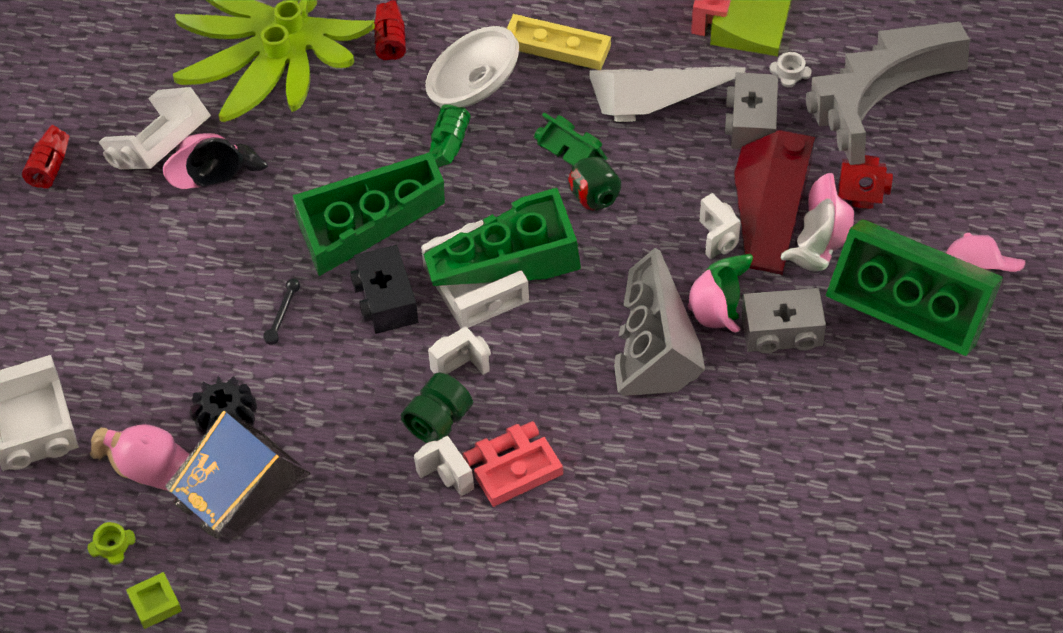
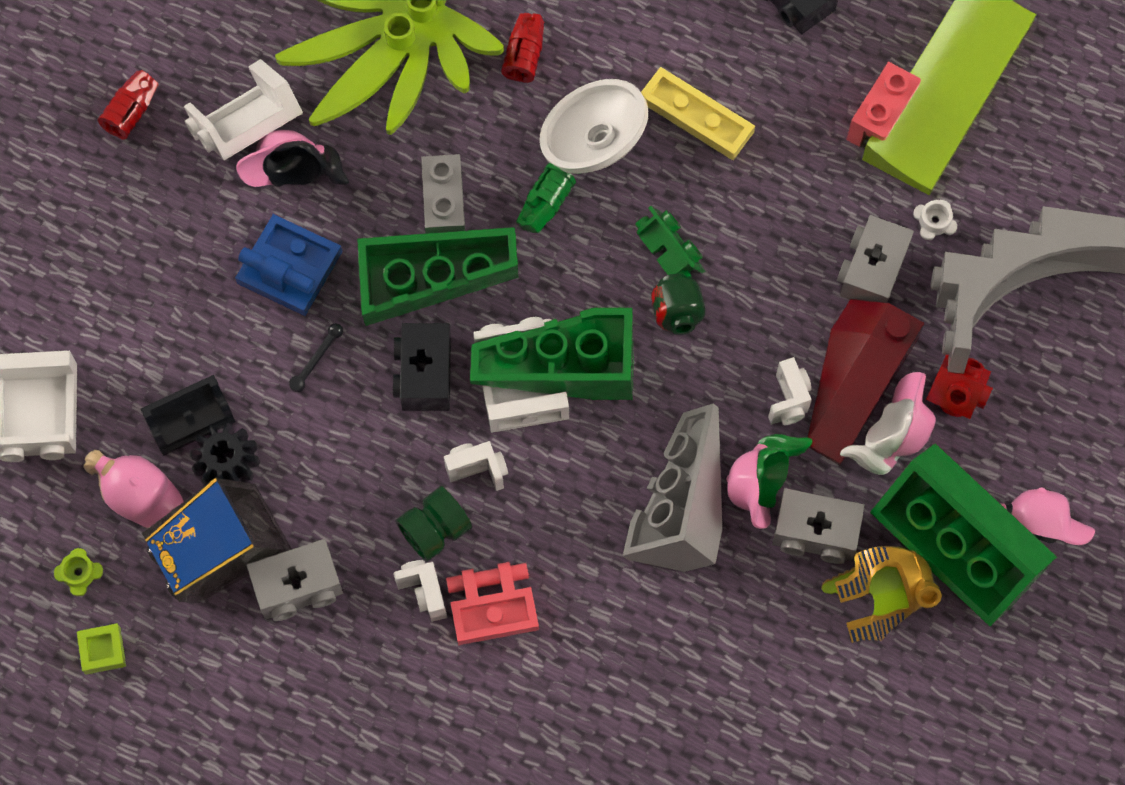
camera: 15 degrees right, 15 degrees up
(170, 385) = (187, 413): none -> black hinge
(232, 243) = (288, 264): none -> blue plate
(322, 490) = (273, 581): none -> light grey brick
(354, 146) = (443, 193): none -> light grey brick
(644, 91) = (763, 205): white wedge -> none
(866, 341) = (897, 581): none -> pearl gold piece

